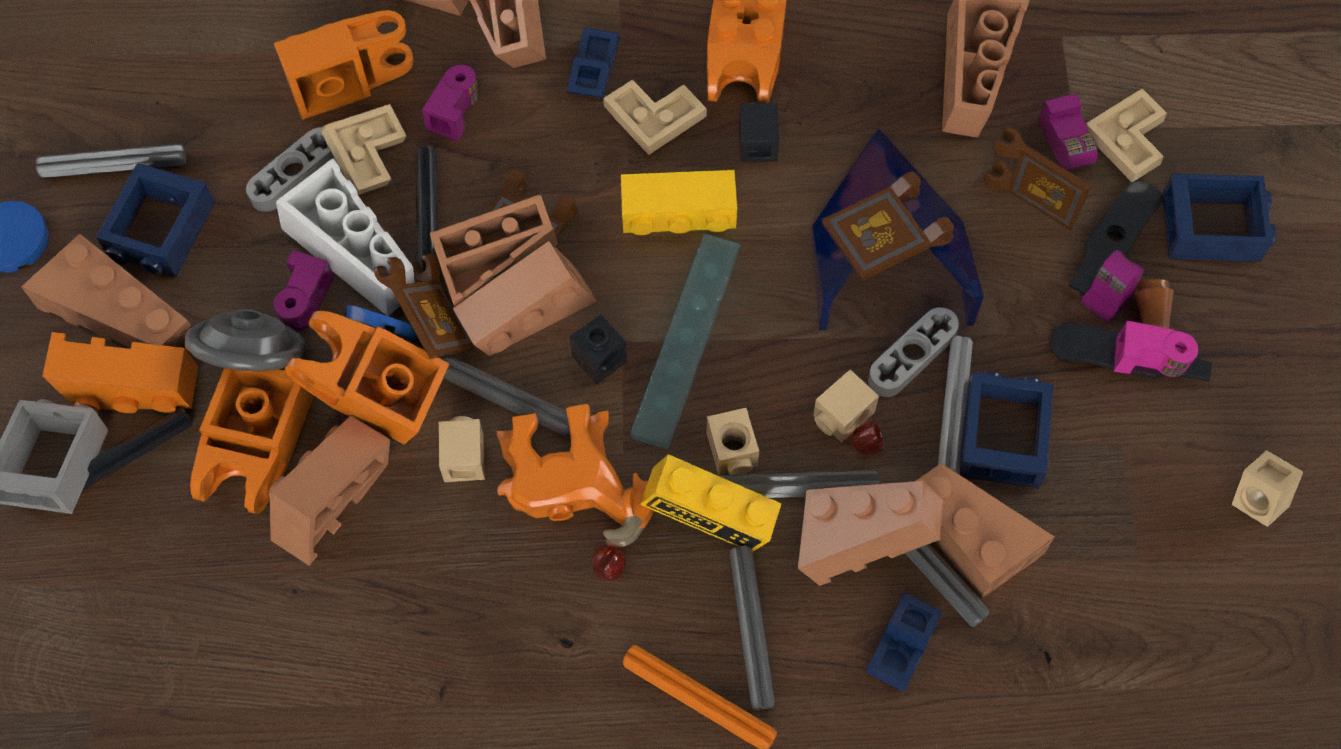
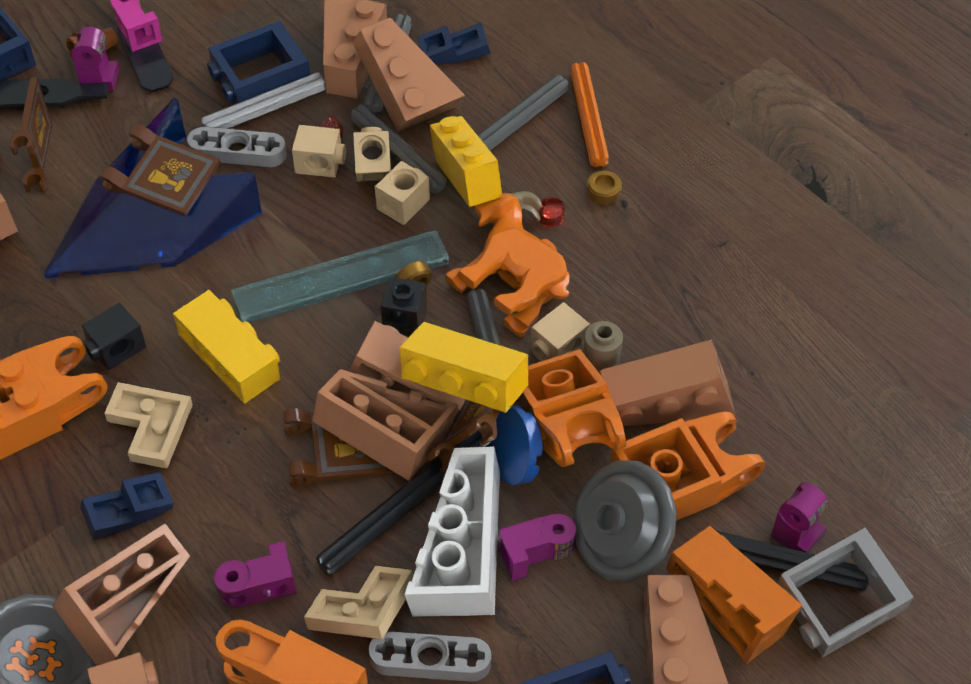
camera: 130 degrees left, 10 degrees down
(125, 479) = (798, 518): none -> magenta leg
(414, 468) = (603, 344): none -> dark tan brick
(454, 294) = (464, 366): none -> yellow brick
(596, 635) = (604, 187): none -> pearl gold tile
(627, 384) = (416, 271): none -> pearl gold tile
(793, 440) = (371, 169): none -> tan brick

